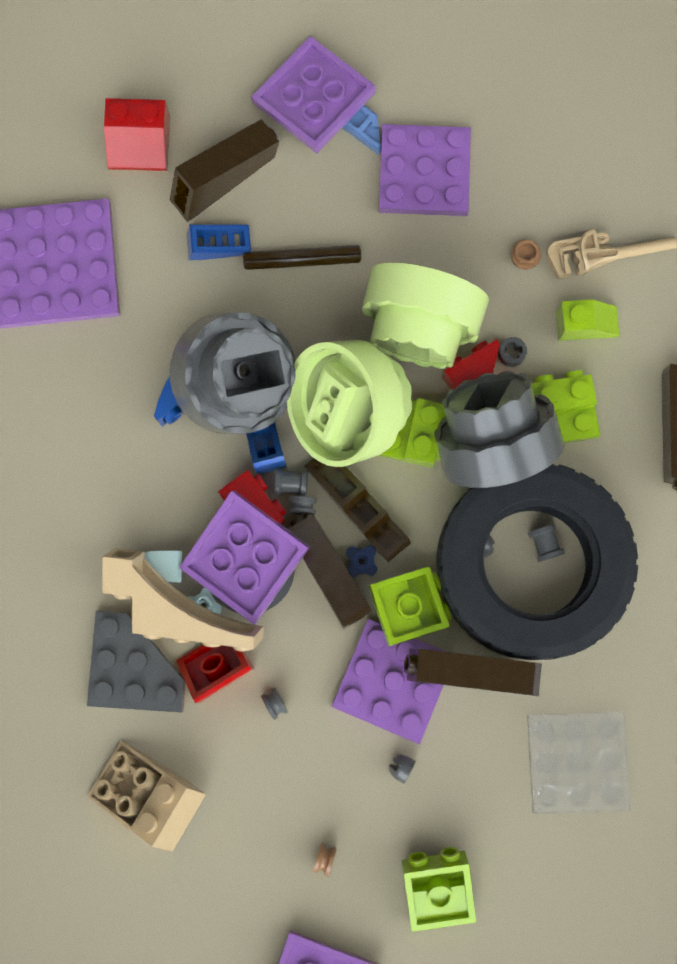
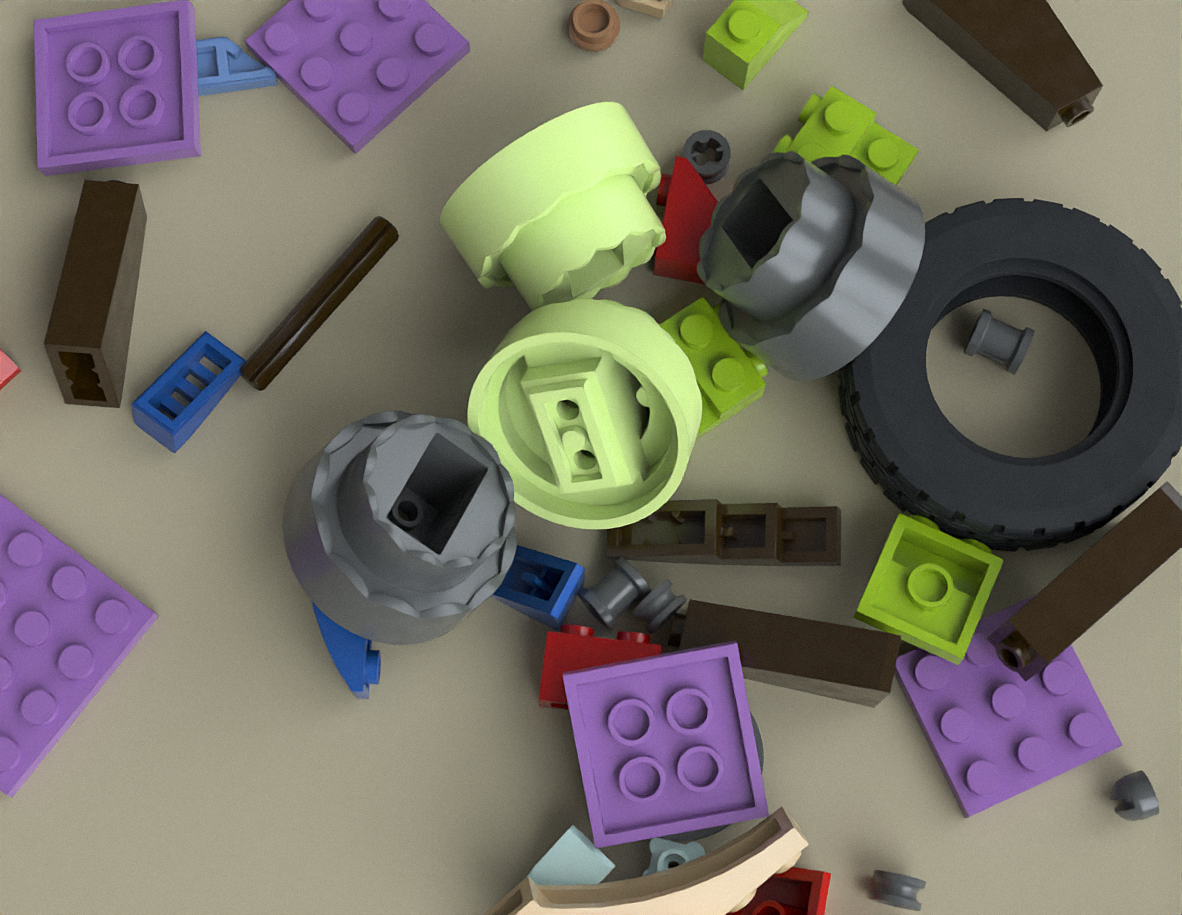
camera: 50 degrees left, 5 degrees down
(355, 567) = (805, 581): dark blue plate -> none

